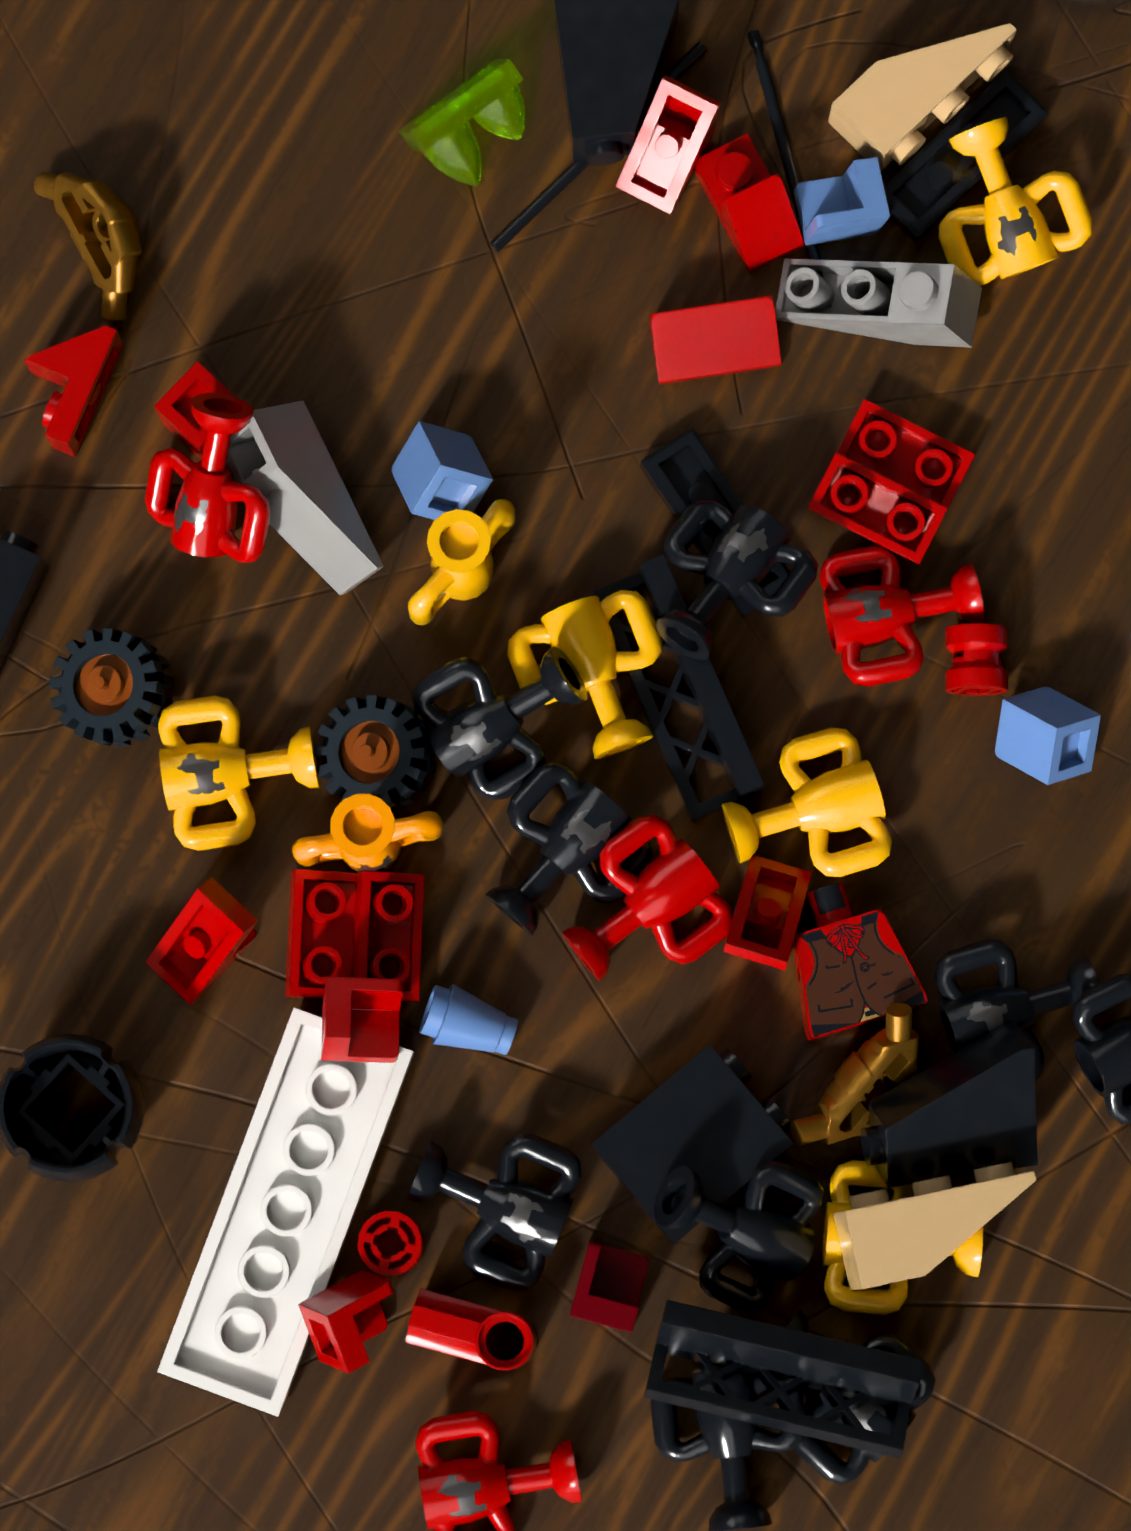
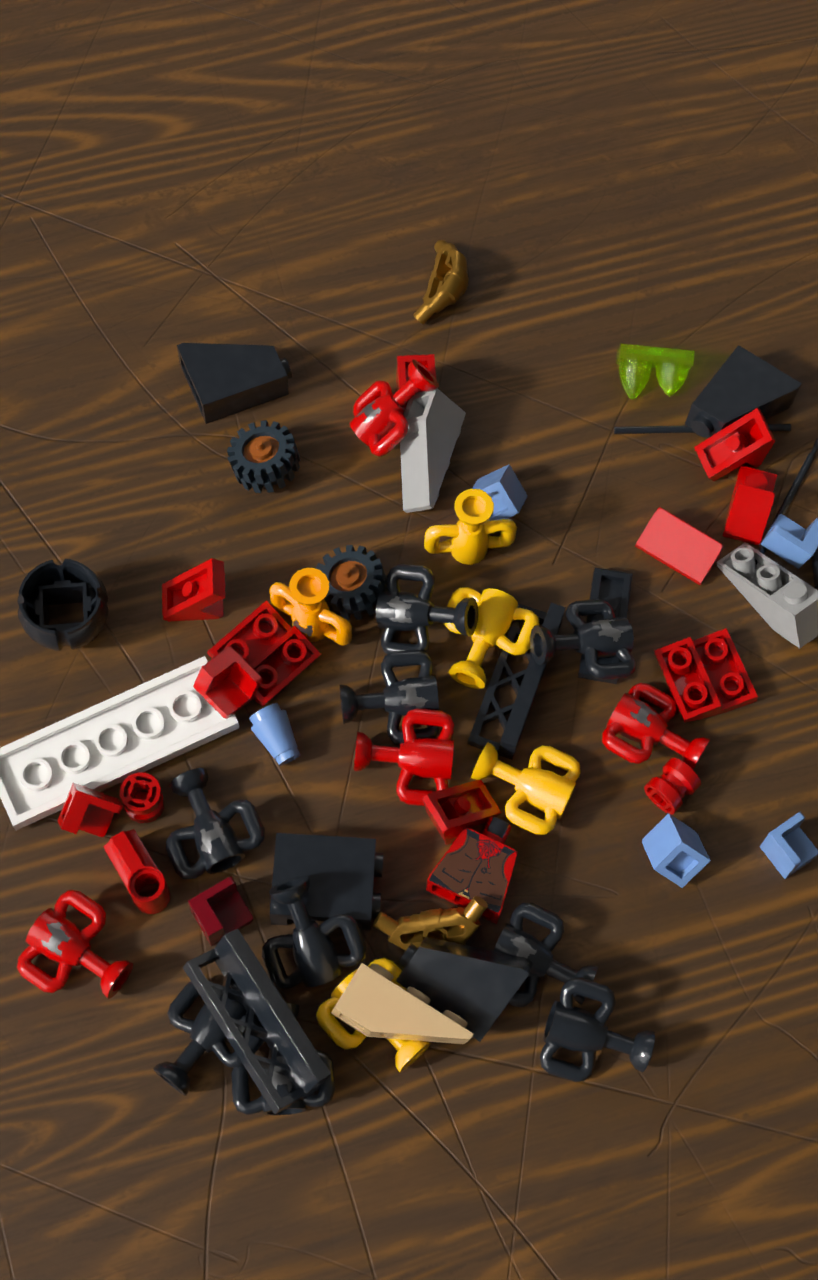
camera: 40 degrees right, 15 degrees down
(84, 370) = (381, 327): red slope -> none
(220, 771) = (274, 530): yellow piece -> none

